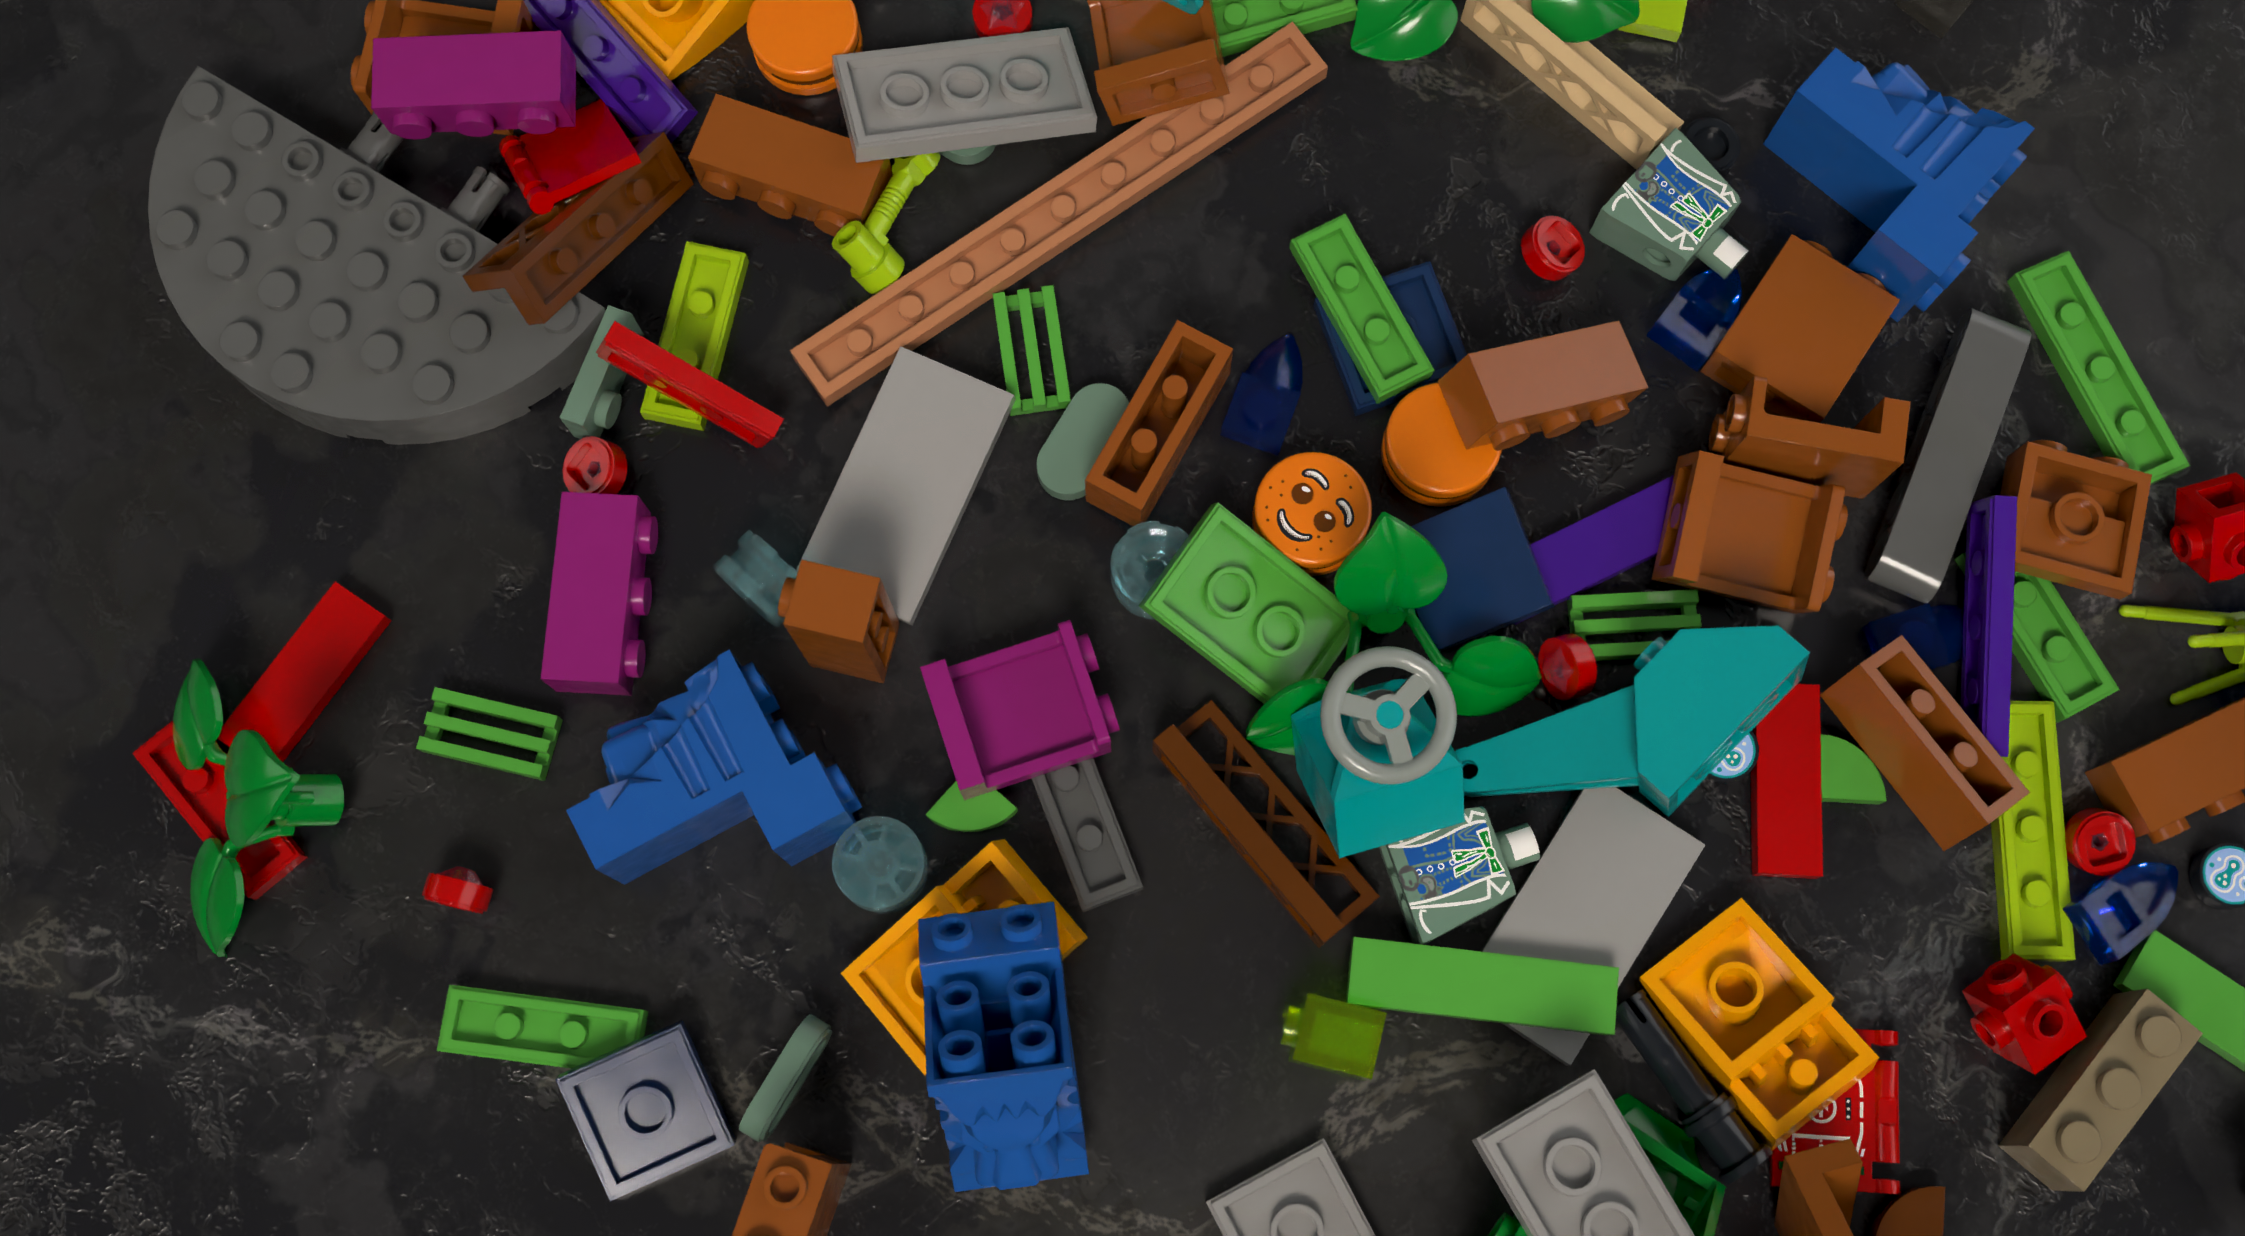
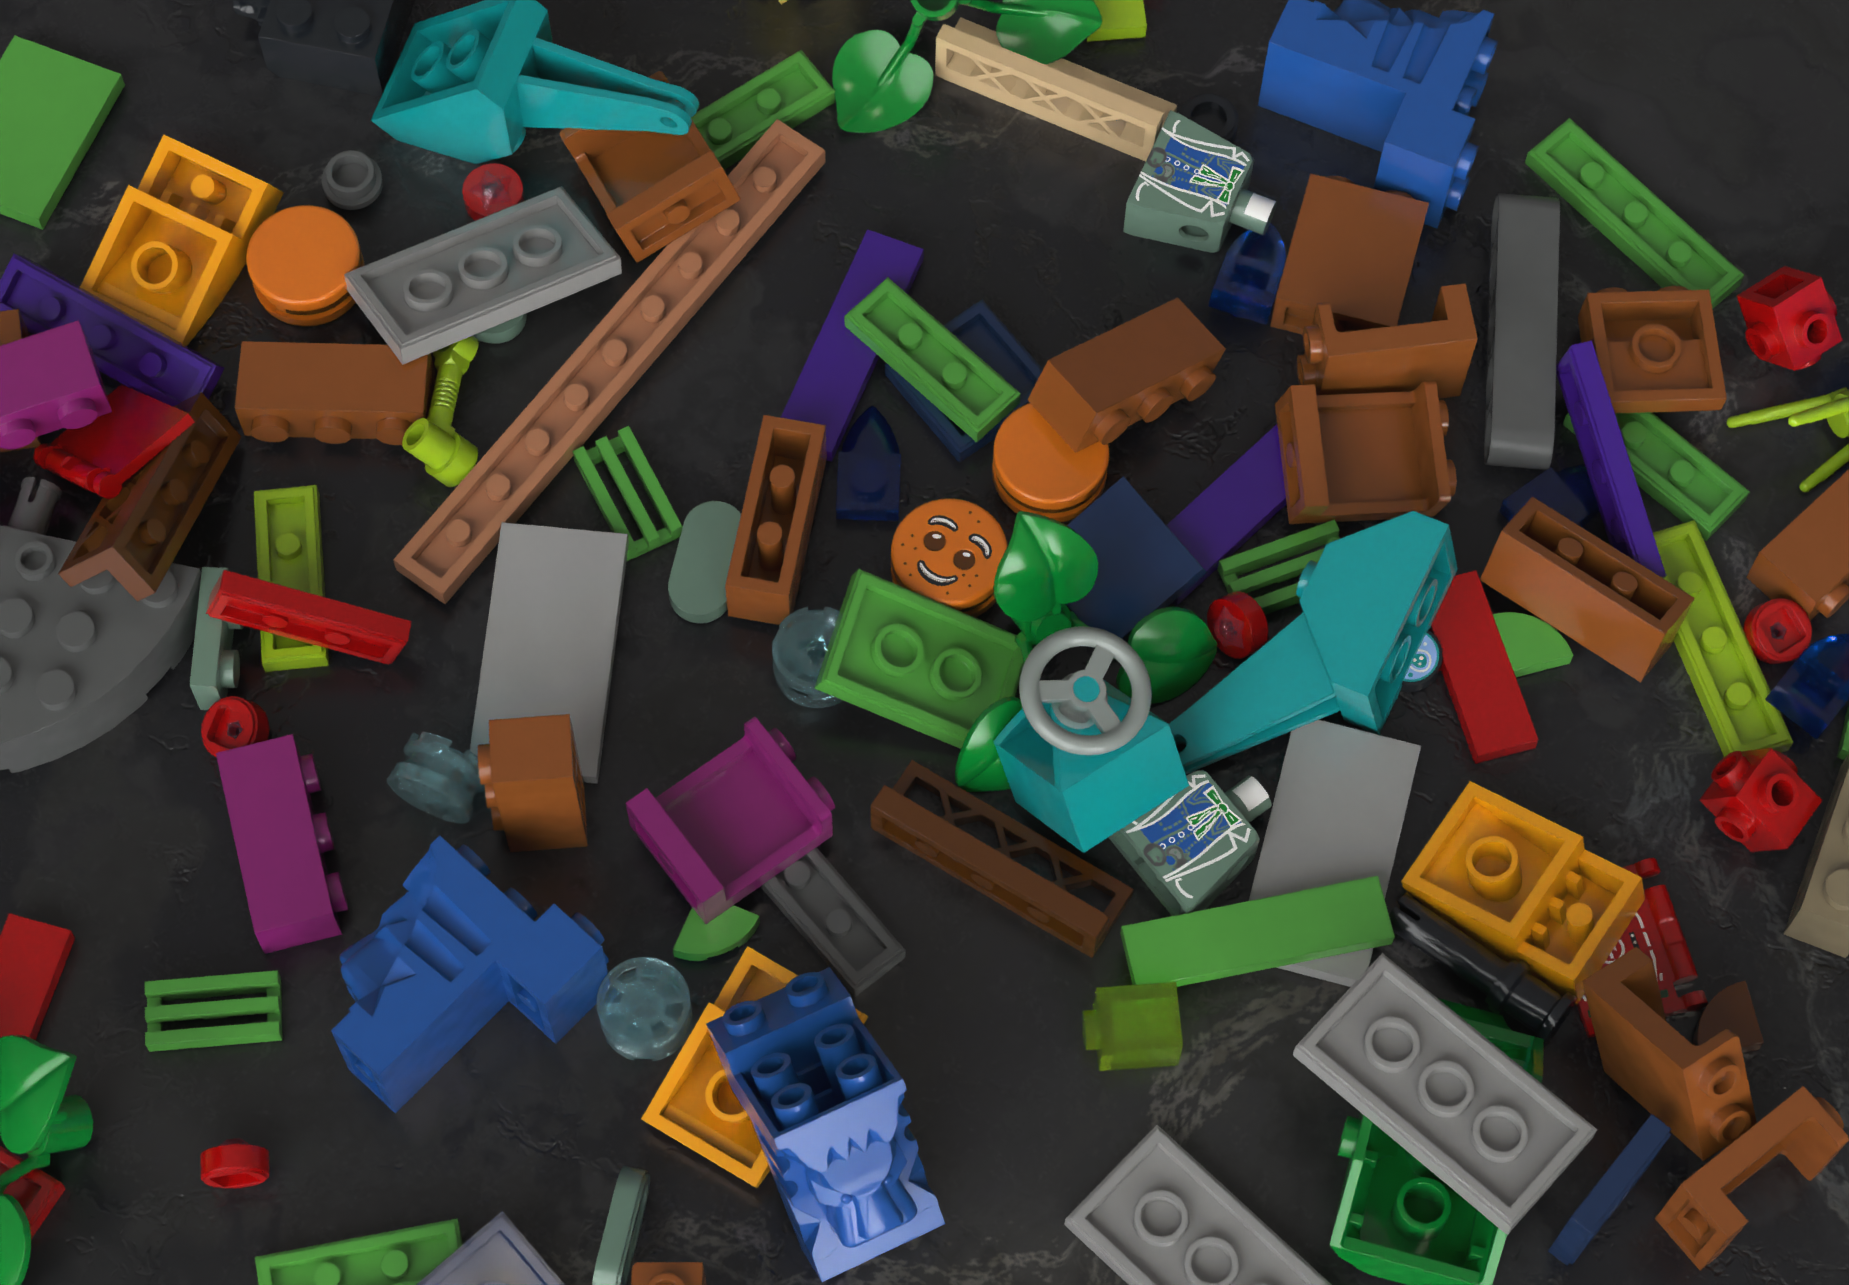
camera: 20 degrees left, 10 degrees down
(1273, 280) = (839, 360): none -> dark purple tile
(1552, 248) = (1093, 253): red tile -> none

